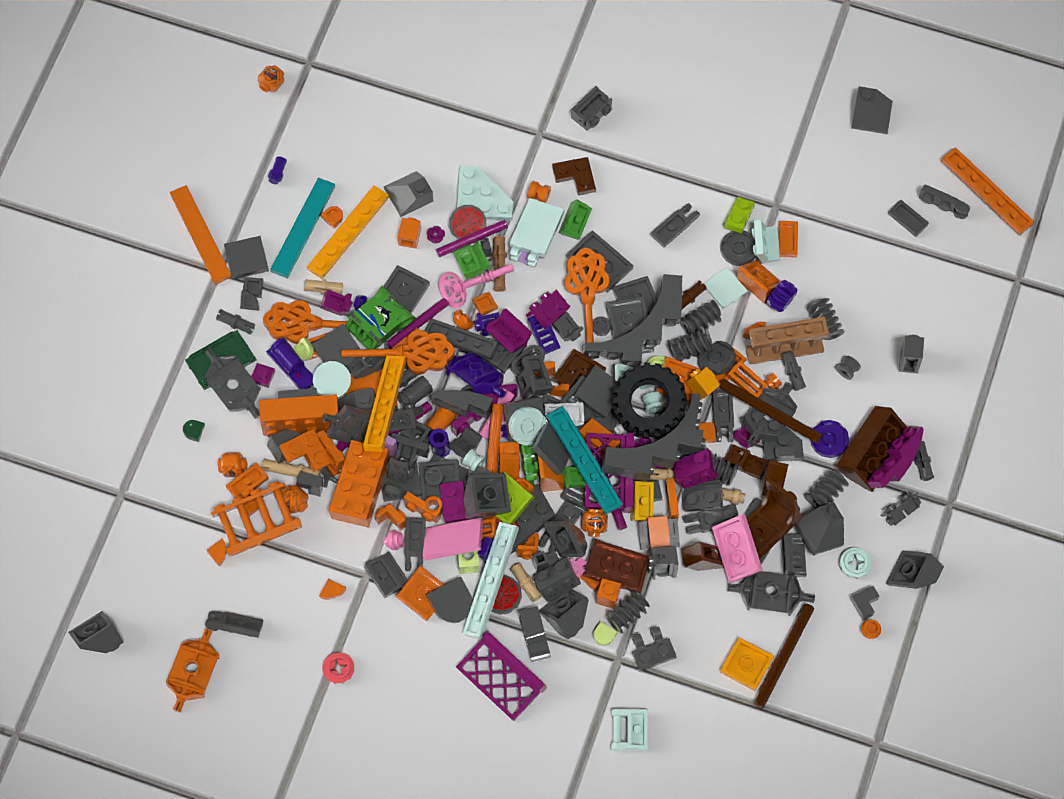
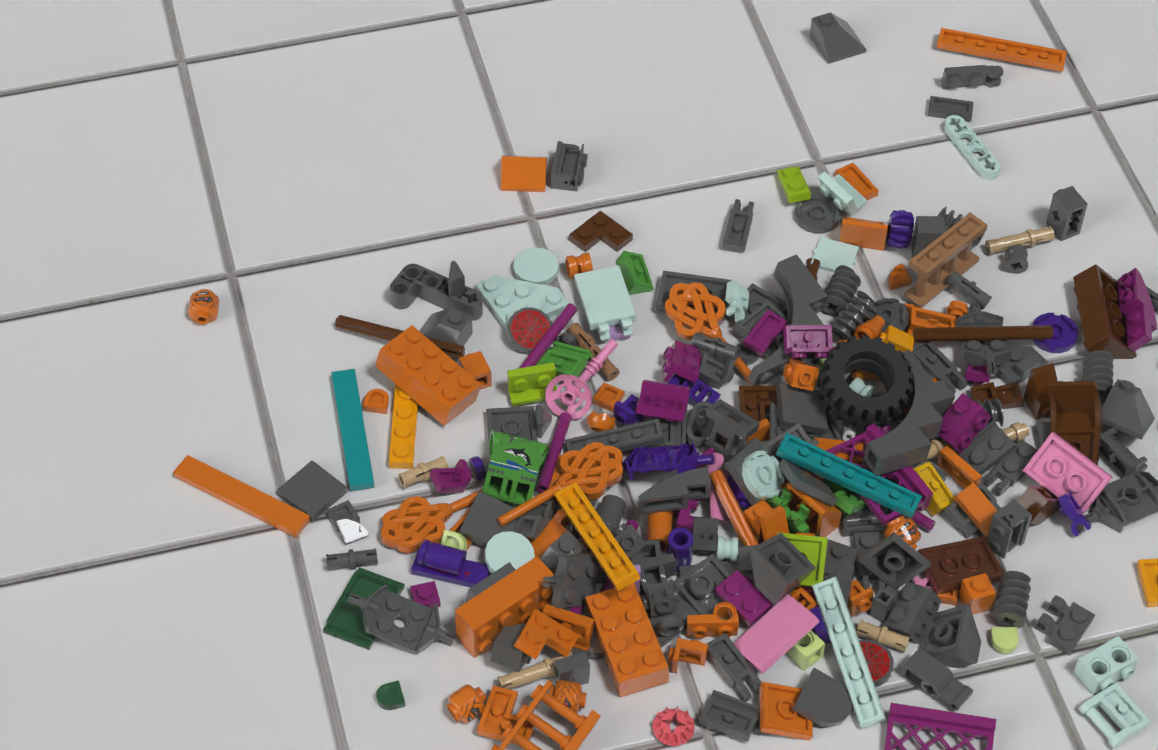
camera: 35 degrees left, 15 degrees down
(276, 173) = (281, 392): dark purple animal -> none
(348, 567) = (682, 732): none -> coral gear
(372, 219) = (428, 375): none -> orange brick
(379, 177) = (388, 334): none -> reddish brown axle
(394, 540) = (708, 677): bright pink plate -> none
(426, 295) = (543, 420): none -> dark grey slope
(429, 159) = (432, 287): none -> dark grey beam
(435, 238) = (502, 360): magenta plate -> none
(435, 264) = (530, 383): none -> lime bracket
(438, 159) = (456, 280): none -> dark grey slope
(511, 175) = (536, 266): none -> light aqua tile
(559, 94) = (523, 173): none -> orange slope
(585, 319) = (715, 346): none -> dark grey pin
(612, 370) = (800, 375): none -> orange bracket
(621, 320) = (764, 333): none -> magenta tile
(622, 284) = (738, 299): none -> light aqua plate
(635, 346) = (807, 339): none -> magenta bracket
(652, 689) = (1103, 661): none -> light aqua brick
(690, 362) = (870, 328): none -> orange cone
(721, 575) = (1070, 508): none -> dark purple plate
(793, 311) = (926, 231): none -> dark grey brick
(866, 354) = (1027, 238): none -> tan pin
(896, 259) = (975, 145): none -> light aqua beam

